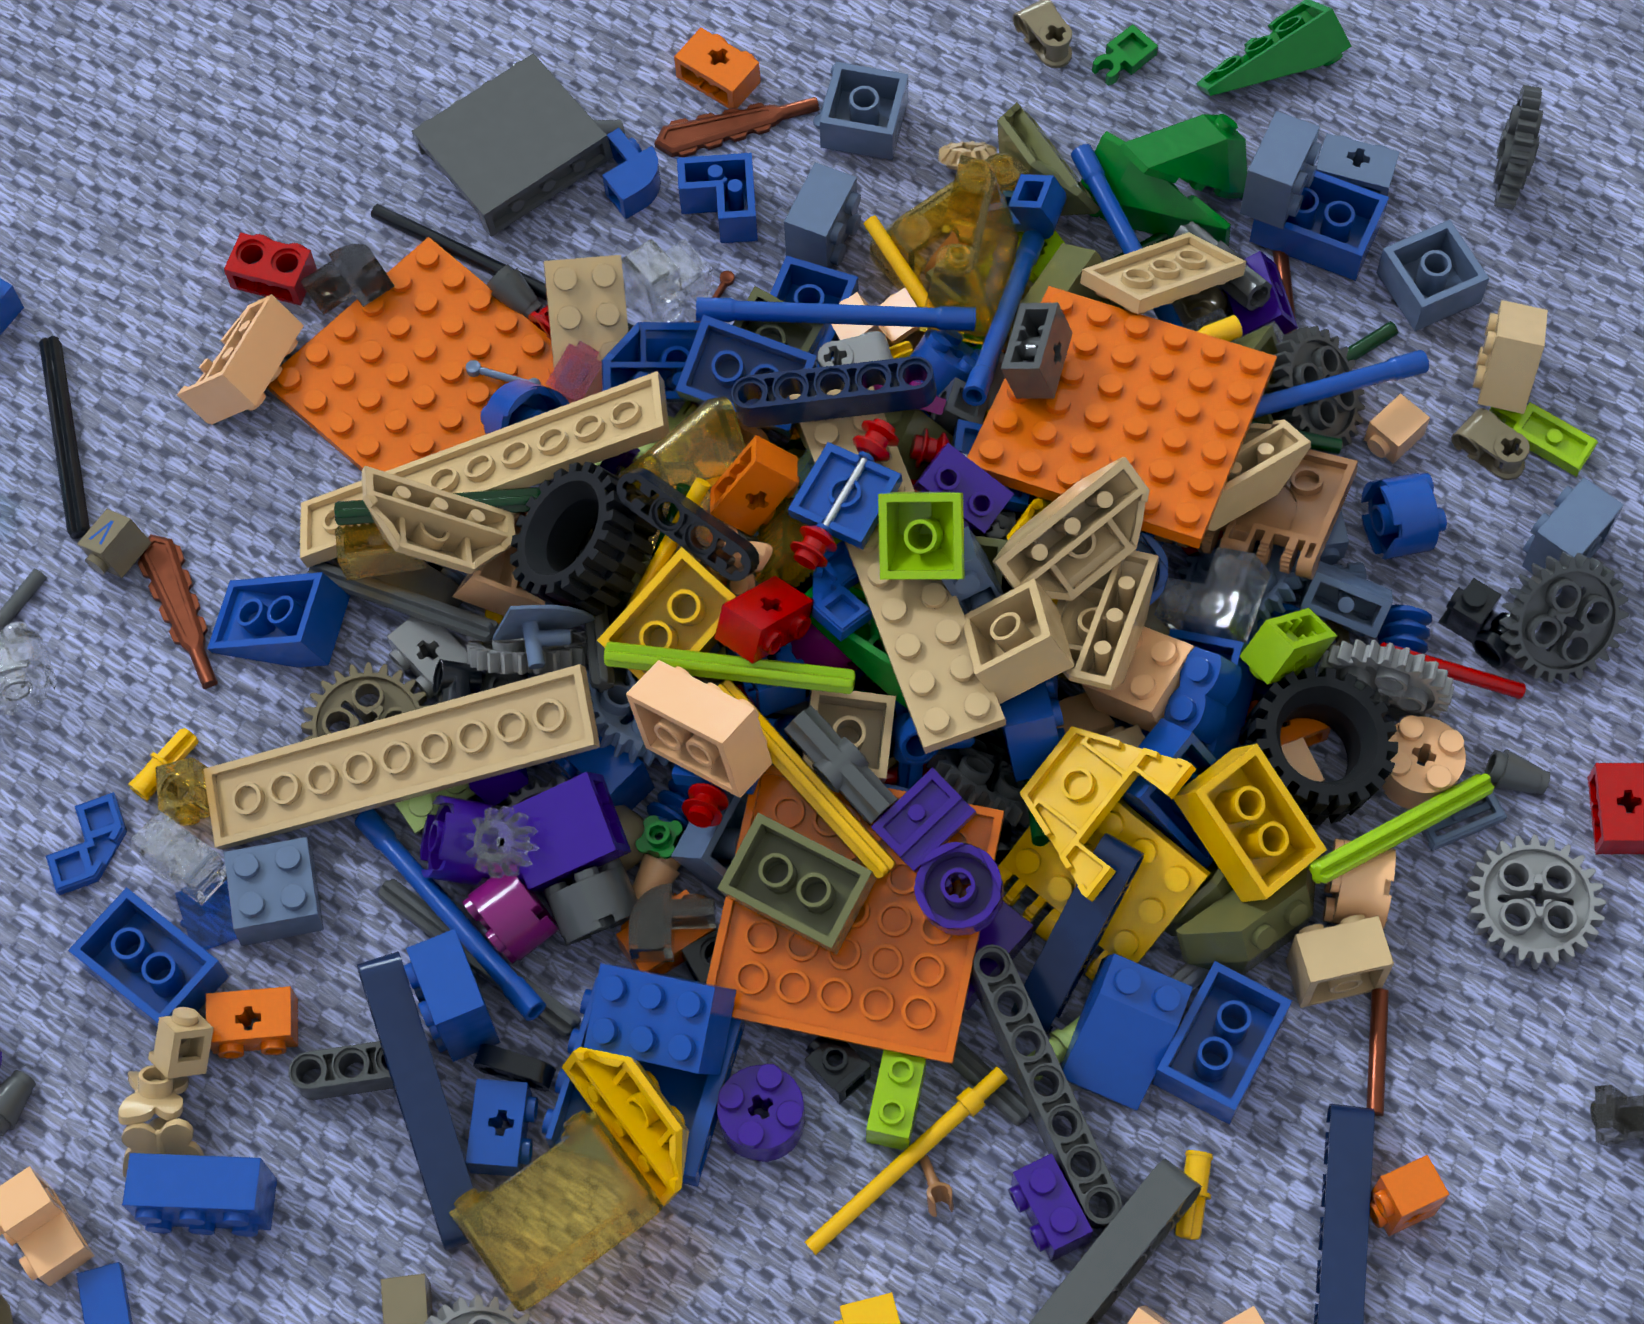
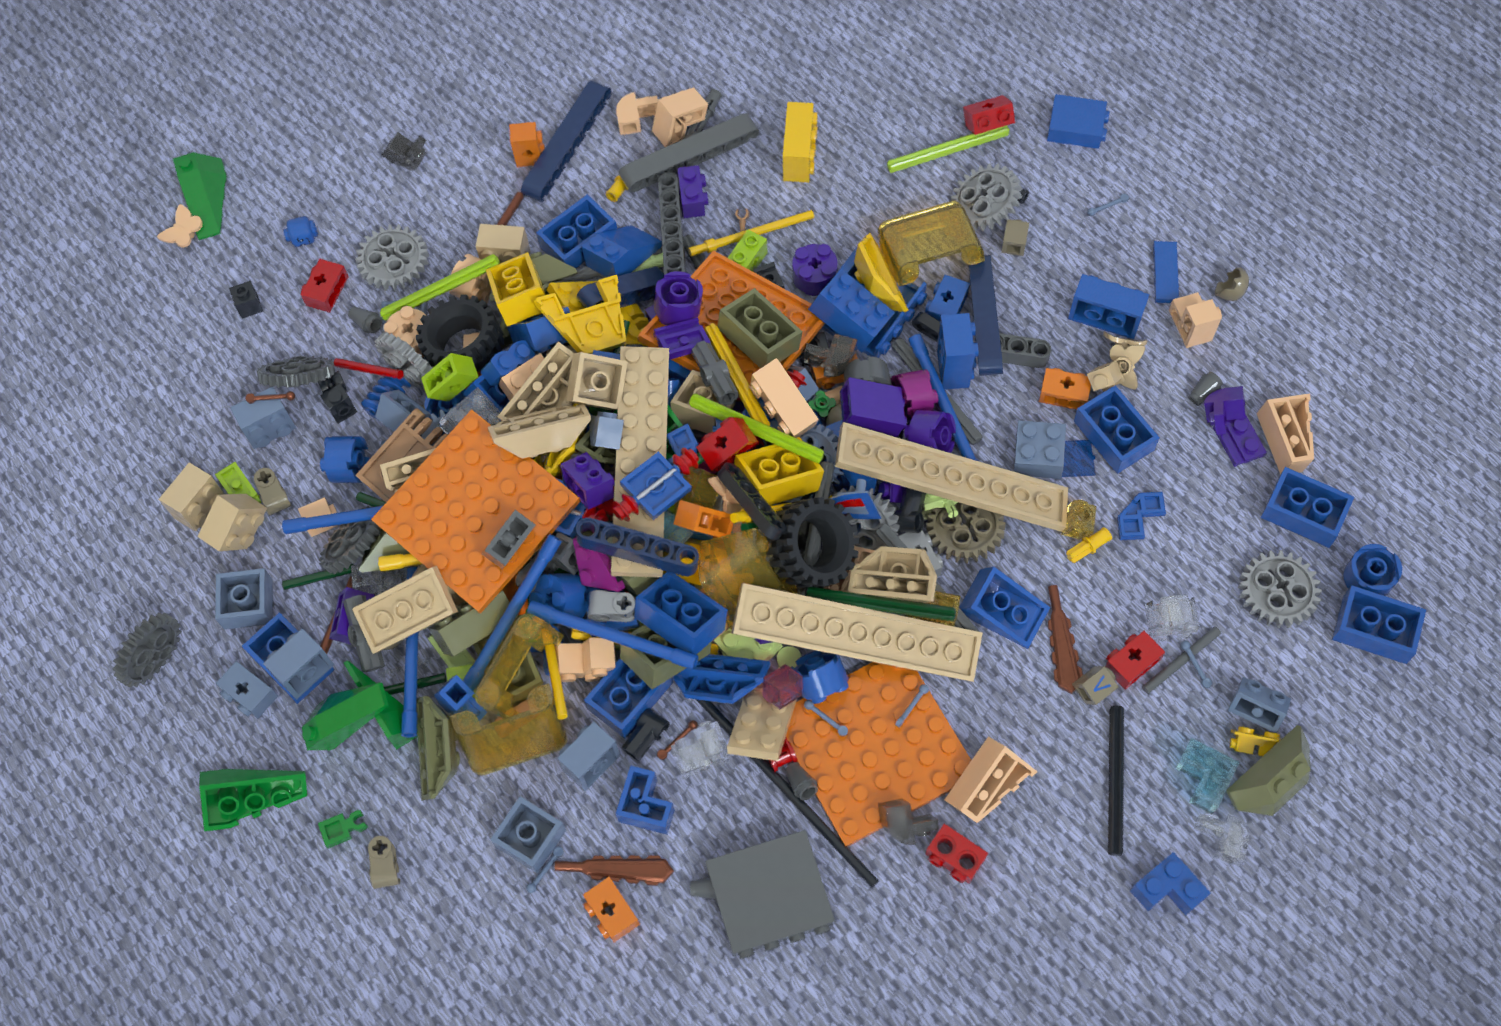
camera: 160 degrees left, 0 degrees up
(62, 601) = (1147, 654): none -> red brick
(180, 857) = (1088, 481): clear brick -> none
(370, 457) = (923, 689): none -> sand blue hinge
(490, 829) = (908, 402): clear gear -> none
(635, 179) = (694, 838): blue brick -> none
(760, 273) = (647, 731): none -> black piece
(921, 535) = (622, 438): lime slope -> none
(950, 154) = (483, 775): tan gear -> none
(1597, 526) = (250, 398): none -> copper hinge
(1601, 381) = (191, 496): none -> tan brick

